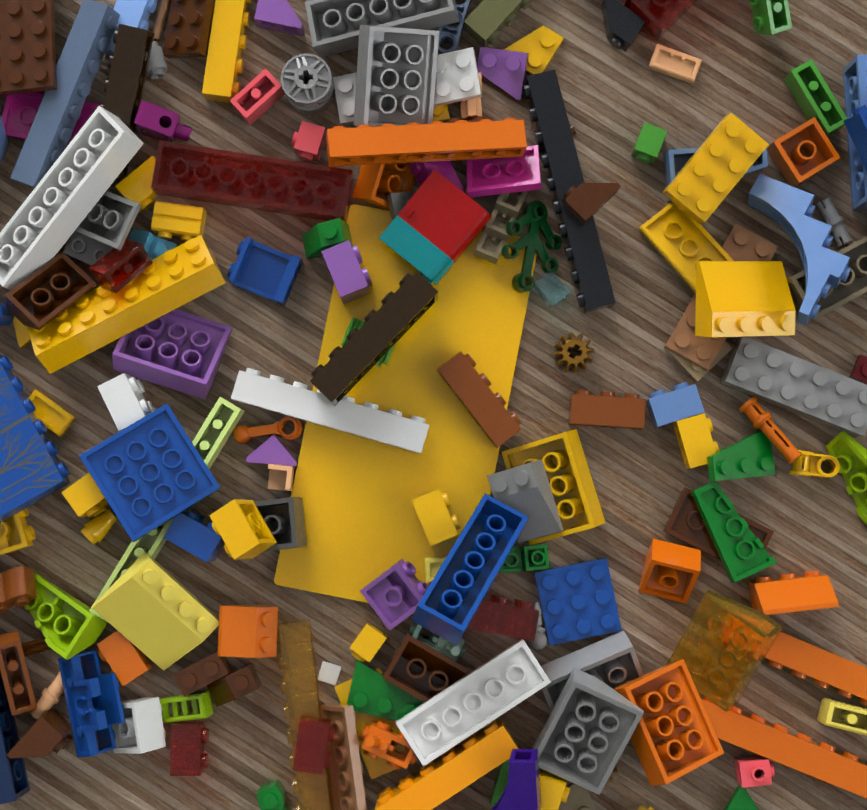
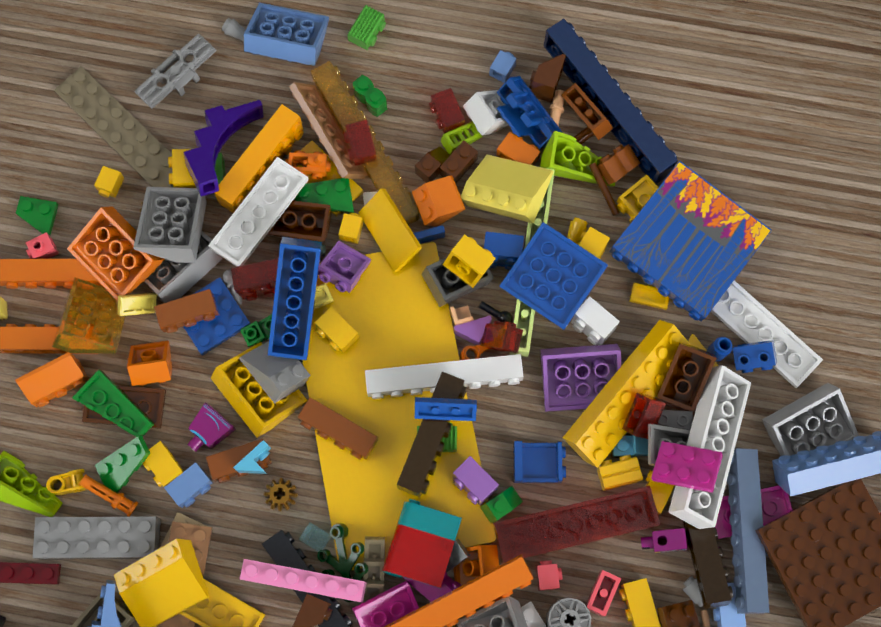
camera: 160 degrees right, 10 degrees down
(40, 580) = (604, 189): none -> reddish brown bar
(92, 781) = (502, 66): none -> medium blue brick
(98, 179) = (687, 466): none -> dark pink plate
(232, 457) = (503, 316): none -> black bar
(244, 426) = (502, 336): none -> clear red brick
(281, 595) = (430, 234): none -> blue tile
(322, 617) = (390, 230): none -> yellow tile
(346, 352) = (445, 409): none -> blue plate
(584, 238) = (303, 580): none -> bright pink brick
(595, 394) = (249, 462): none -> medium azure slope
(605, 613) = (186, 311): none -> dark orange brick
(628, 463) = (209, 428): none -> magenta torso
(662, 648) = (136, 304): none -> light yellow plate

